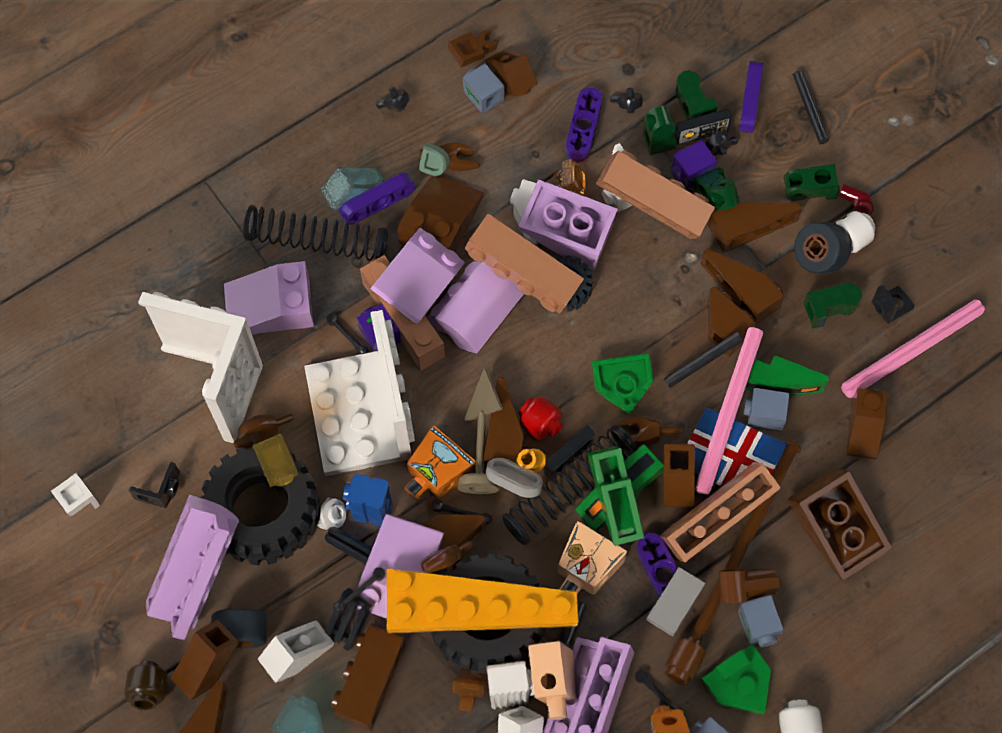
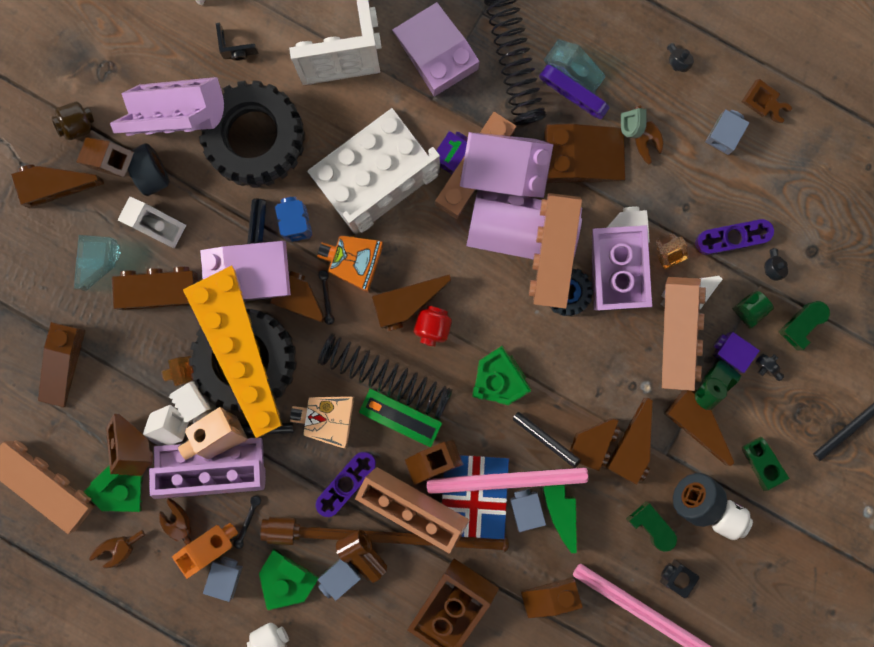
camera: 65 degrees right, 20 degrees up
(260, 429) = (319, 100): reddish brown hand -> none
(276, 461) = (279, 131): clear yellow brick -> none
(332, 320) = (446, 110): black hinge -> none
(332, 514) = (274, 193): white plate -> none
(340, 632) = (184, 250): black tile -> none
(378, 575) = (228, 259): black hinge -> none
(444, 557) = (263, 305): reddish brown hand -> none
(483, 403) = (420, 272): dark tan piece -> none
(513, 71) = (756, 149): reddish brown slope -> none
(514, 478) = (363, 329): light grey tile -> none
(532, 459) = (387, 338): light orange axle -> none
(570, 450) = (413, 362): black tile -> none
(615, 495) = (385, 419): green slope -> none
(648, 430) = (464, 419): reddish brown hand -> none
(675, 601) = (322, 504): light grey tile -> none
(702, 126) = (778, 344): tile -> none
(751, 97) = (830, 374): dark purple beam -> none
(859, 199) = (769, 512): dark red arm -> none

